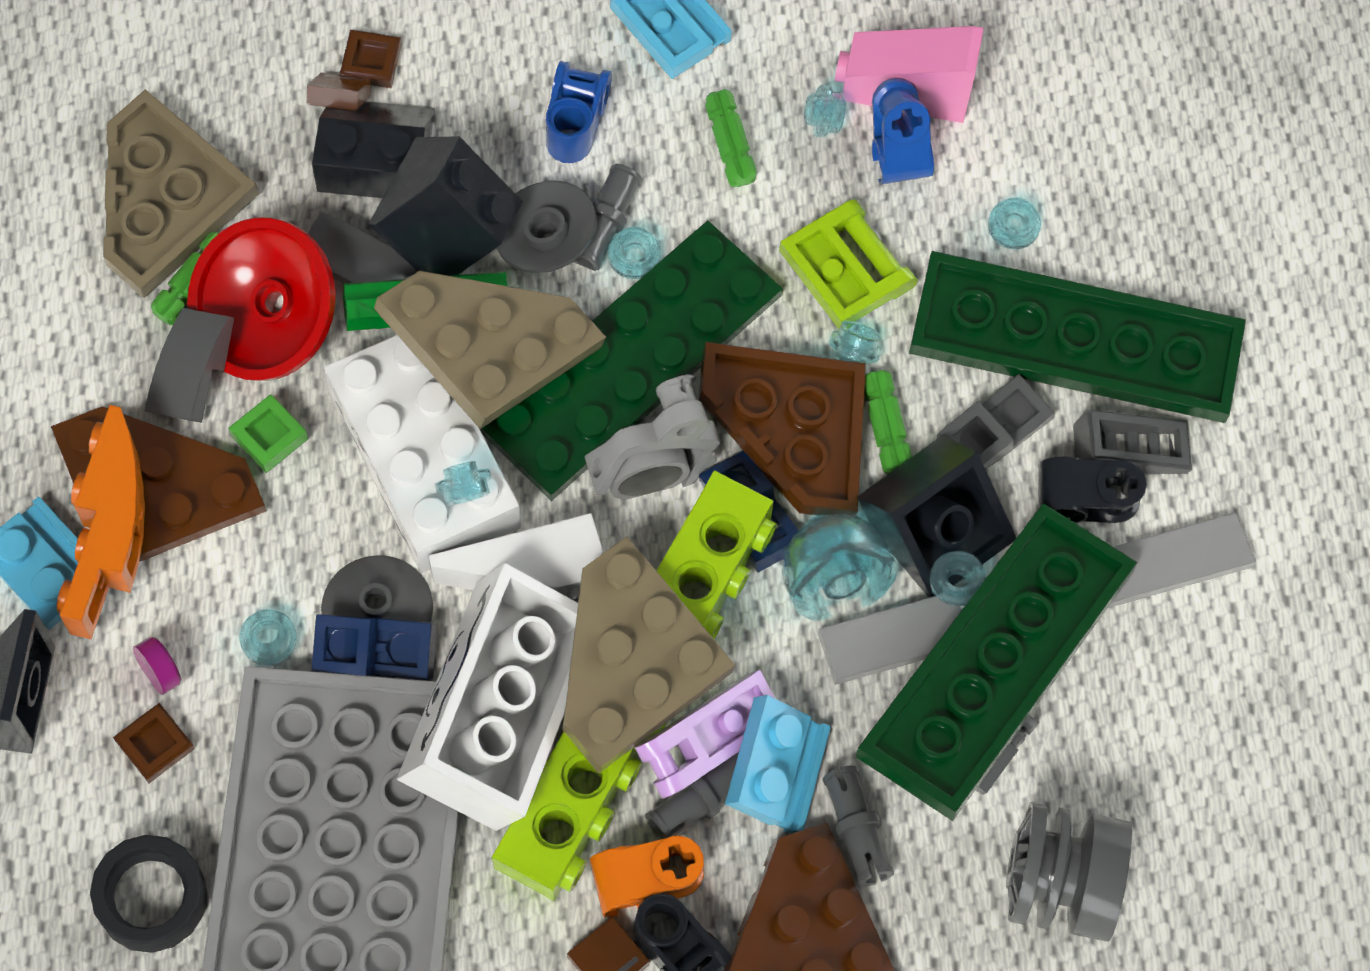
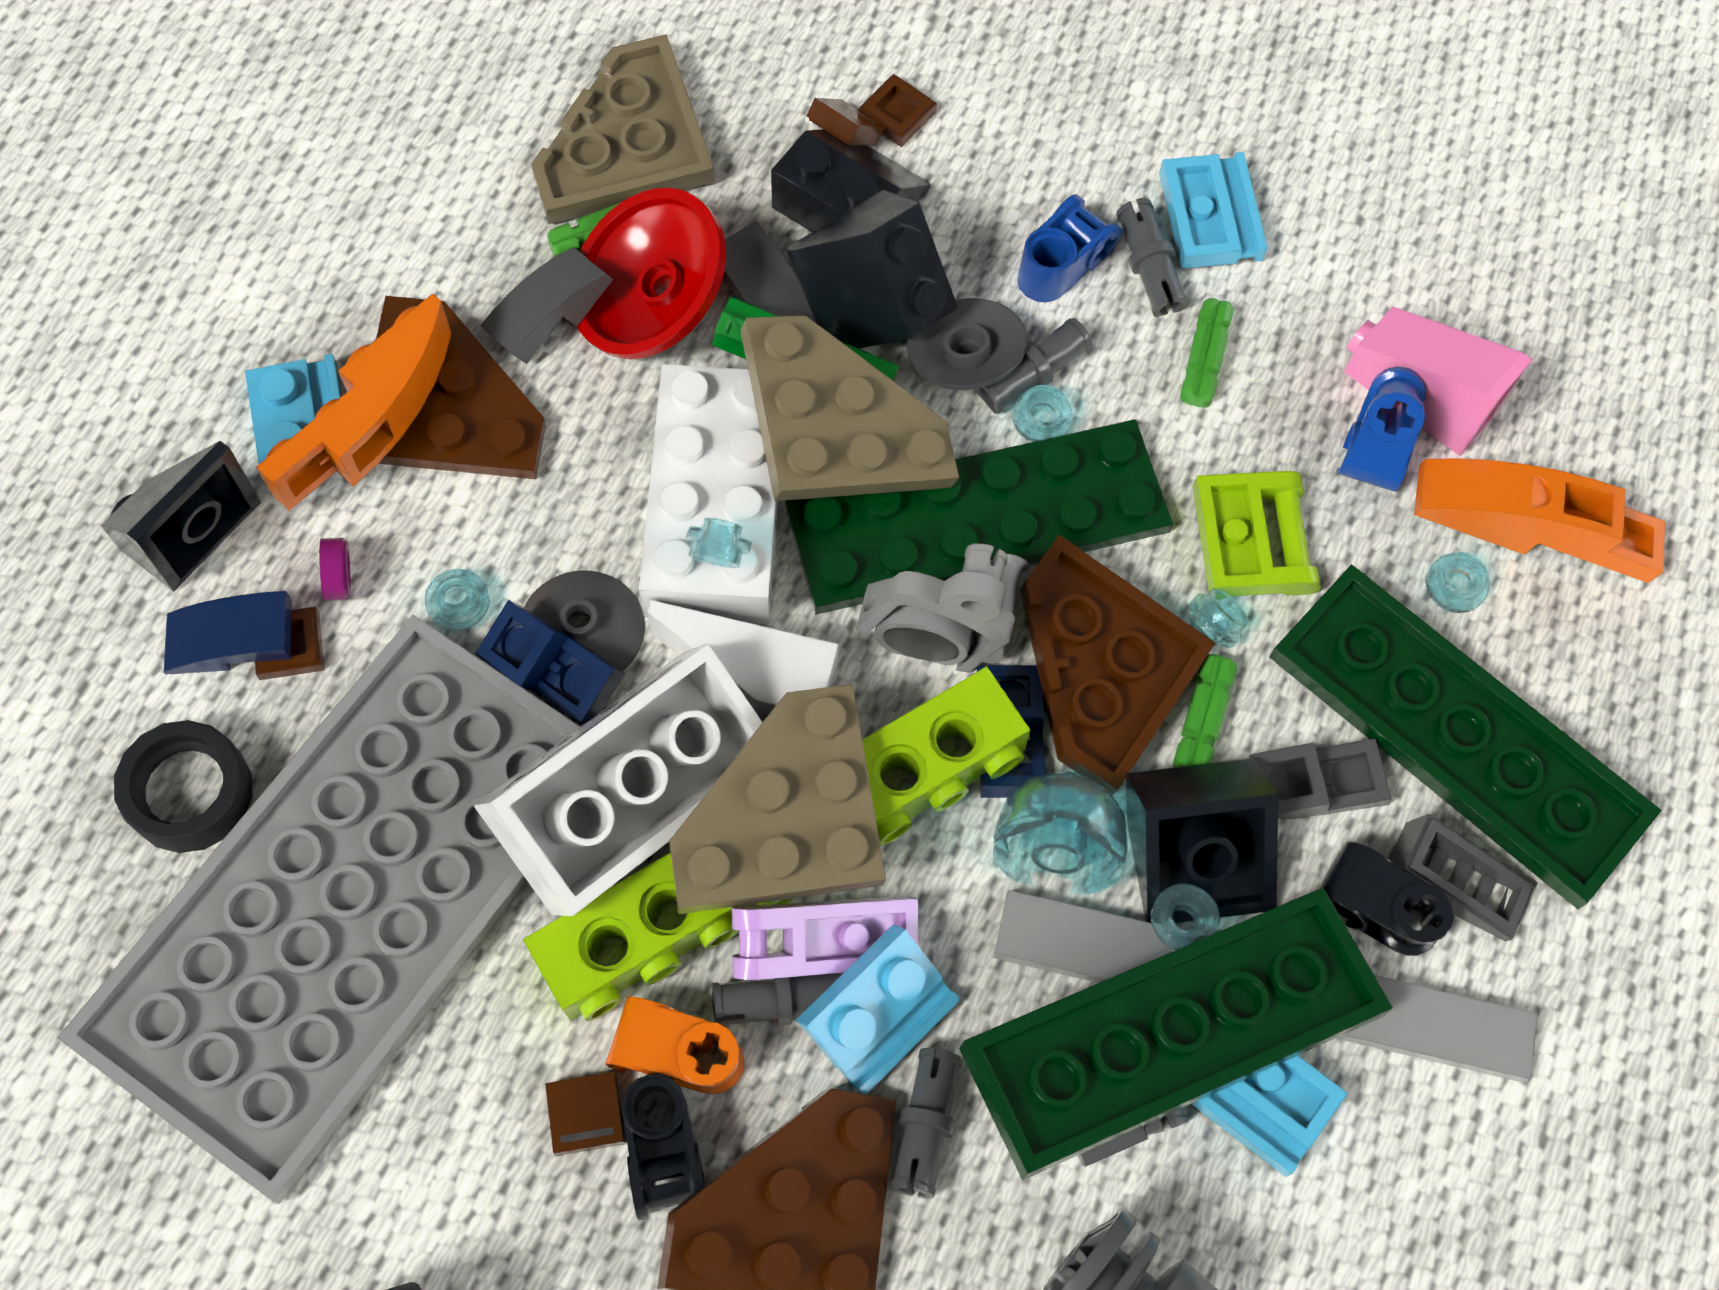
camera: 30 degrees right, 0 degrees up
(101, 760) = (227, 632): none -> dark blue slope
(268, 433) = (580, 405): bright green plate -> none
(645, 82) = (1152, 257): none -> dark grey pin
(825, 111) = (1319, 372): clear light blue plate -> none
(1045, 134) = (1544, 506): none -> orange slope
(1096, 681) = (1276, 1111): none -> medium azure plate

